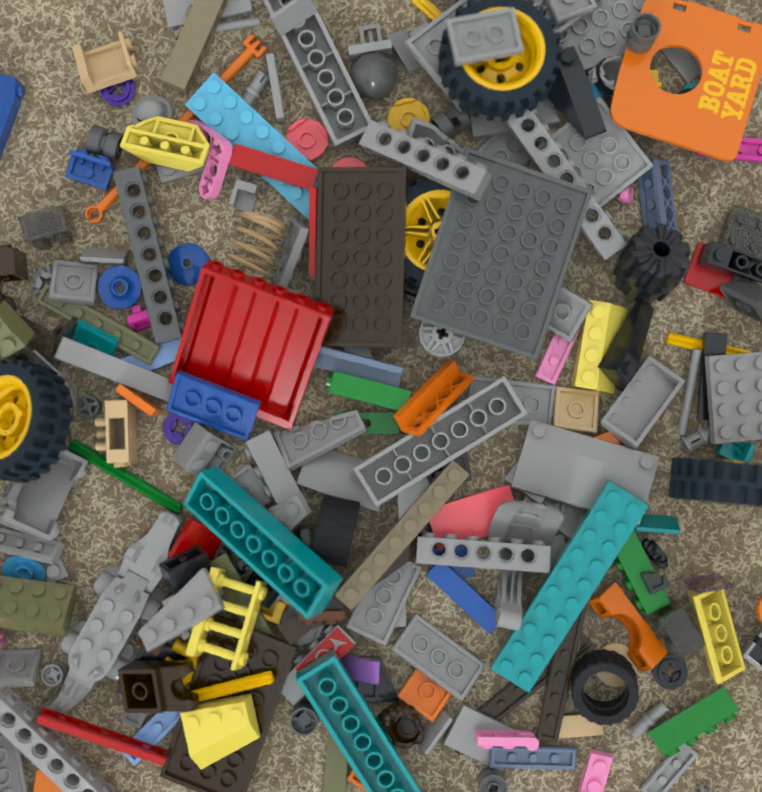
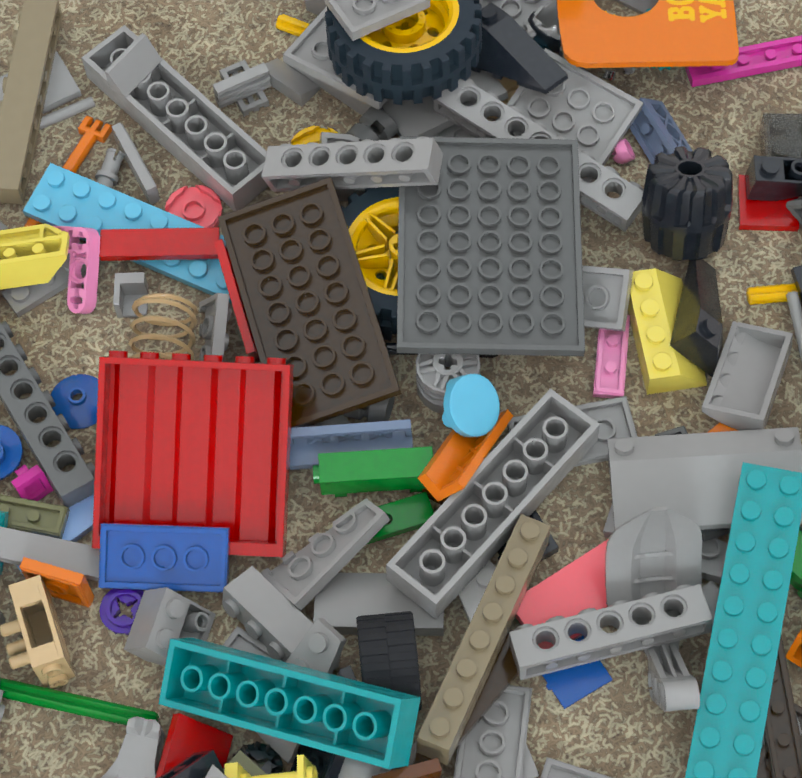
camera: 15 degrees left, 25 degrees down
(374, 75) = (257, 109): dark grey piece -> none
(446, 371) = (470, 405): none -> medium azure tile
(464, 595) = (609, 709): blue tile -> none
(576, 410) = (664, 413): tan tile -> none

